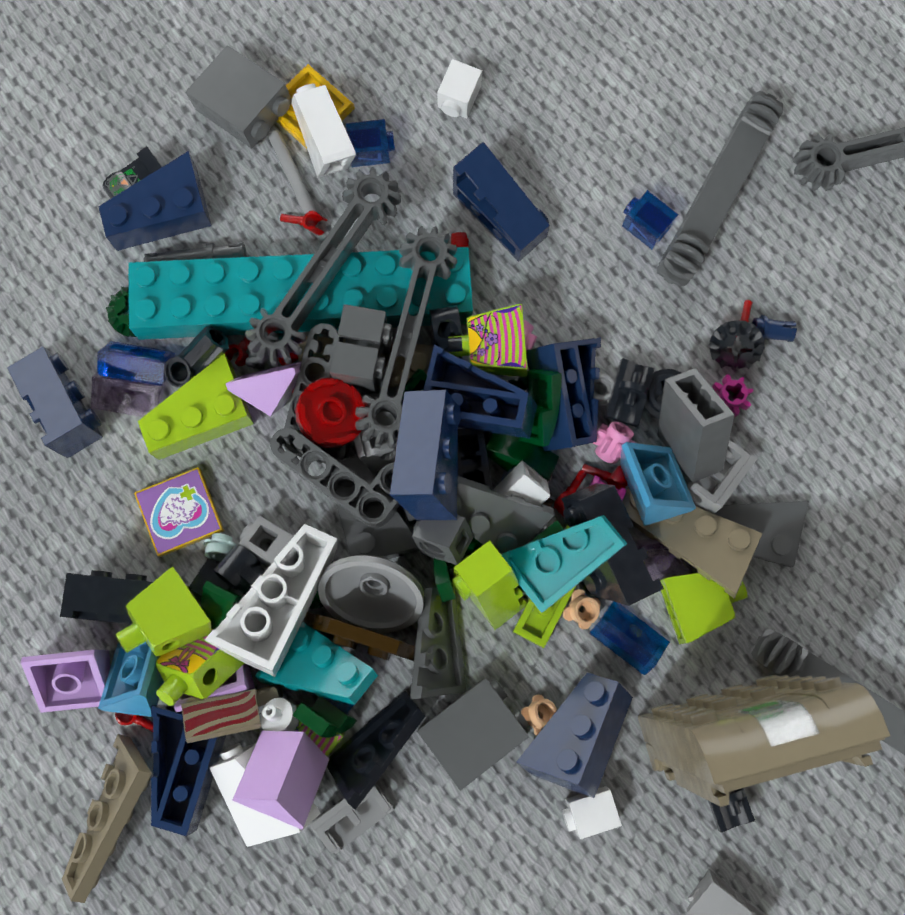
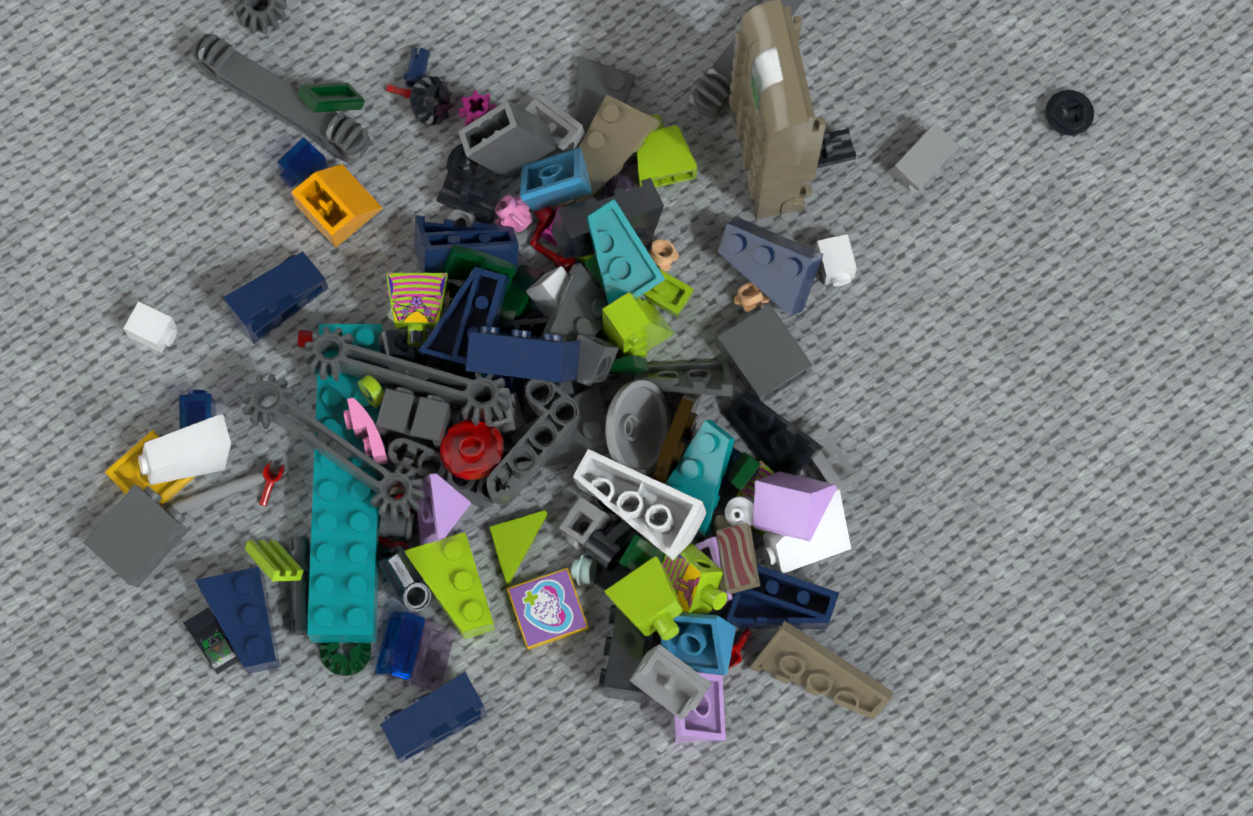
camera: 85 degrees left, 5 degrees down
(68, 646) = (670, 681): none -> light grey hinge
(232, 221) = (274, 559): none -> lime tile
(251, 471) = (514, 541): none -> lime tile
(354, 292) = (363, 426): none -> bright pink slope
(390, 300) = (371, 390): none -> lime tile
(609, 256) = (335, 203): none -> light orange slope
(629, 638) = (689, 218): clear blue slope -> none
(726, 239) = (331, 97): none -> dark green tile

